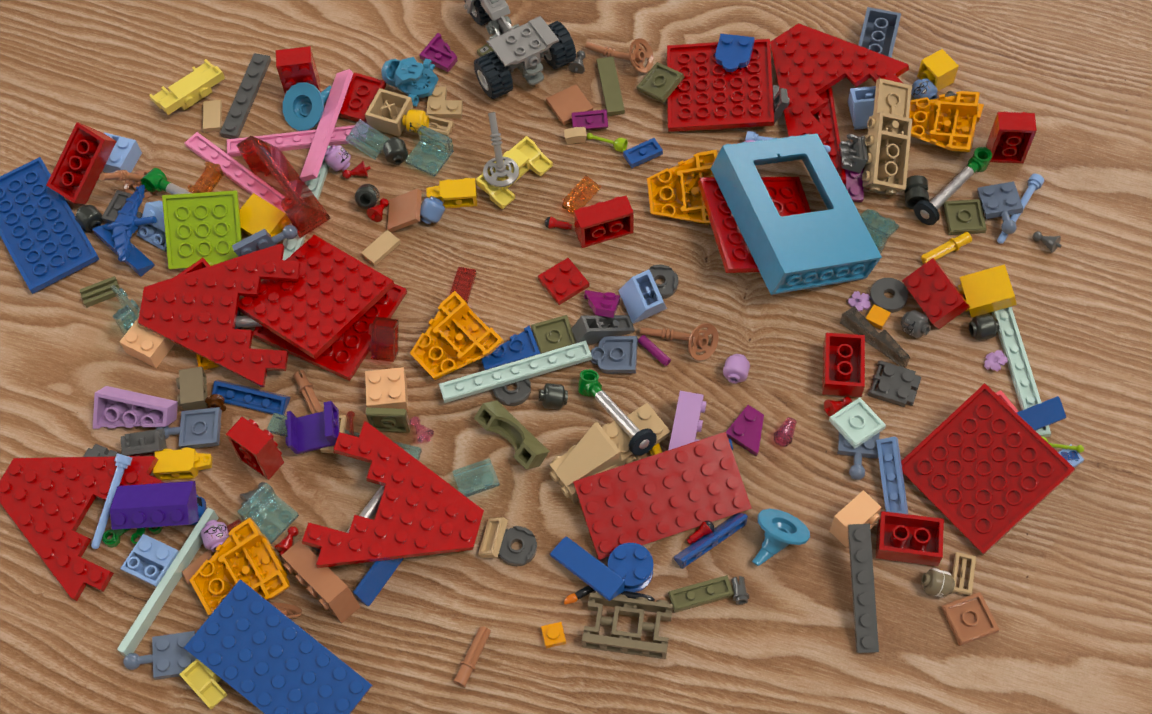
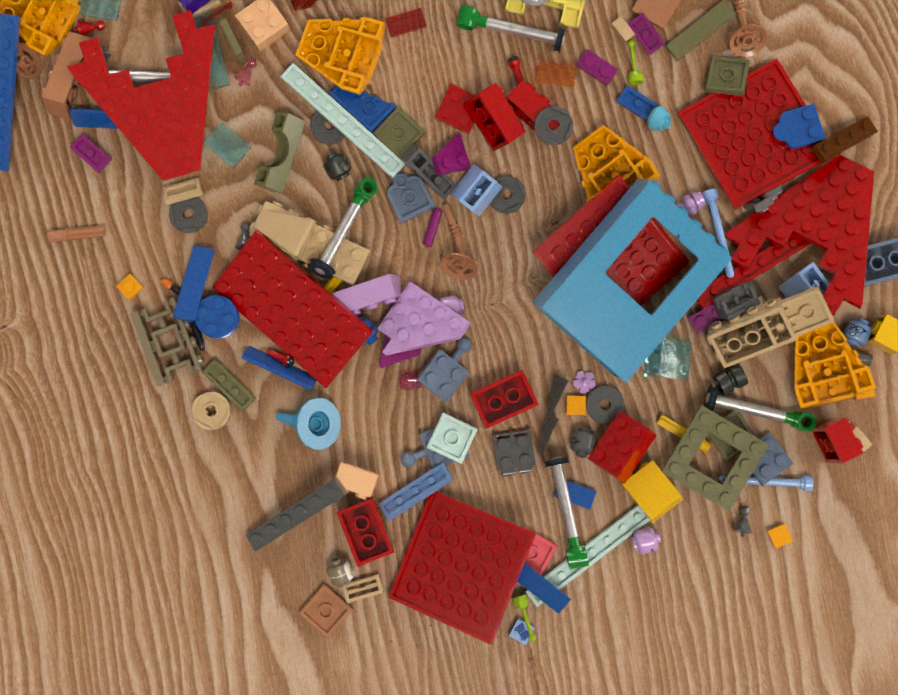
camera: 55 degrees right, 25 degrees up
(405, 601) = (90, 153): none -> magenta plate
(493, 234) = (470, 18): none -> piece
(572, 507) = (244, 237): none -> dark grey piece
(591, 249) = (494, 117): none -> red brick
(594, 167) = (596, 67): none -> magenta plate
(624, 213) = (549, 136): none -> dark grey tile
(666, 142) = (659, 119): none -> medium azure cone
(720, 610) = (200, 412): none -> tan plate
(737, 392) = (420, 322): none -> lavender wing
(740, 594) = (246, 415): dark grey pin -> none
(761, 29) = (844, 140): none -> reddish brown plate
(791, 402) = (443, 373): none -> sand blue plate
(832, 407) = (461, 411): red piece -> none
(958, 355) = (580, 495): none -> blue tile
(976, 260) = (728, 491): none -> olive plate
(983, 327) = (614, 504): pearl dark grey head -> none
(994, 360) = (586, 528): lavender plant -> none
(1017, 374) = (576, 553): none -> piece
(1029, 318) = (646, 540): none -> lavender head
(1072, 222) = (779, 535): none -> light orange tile

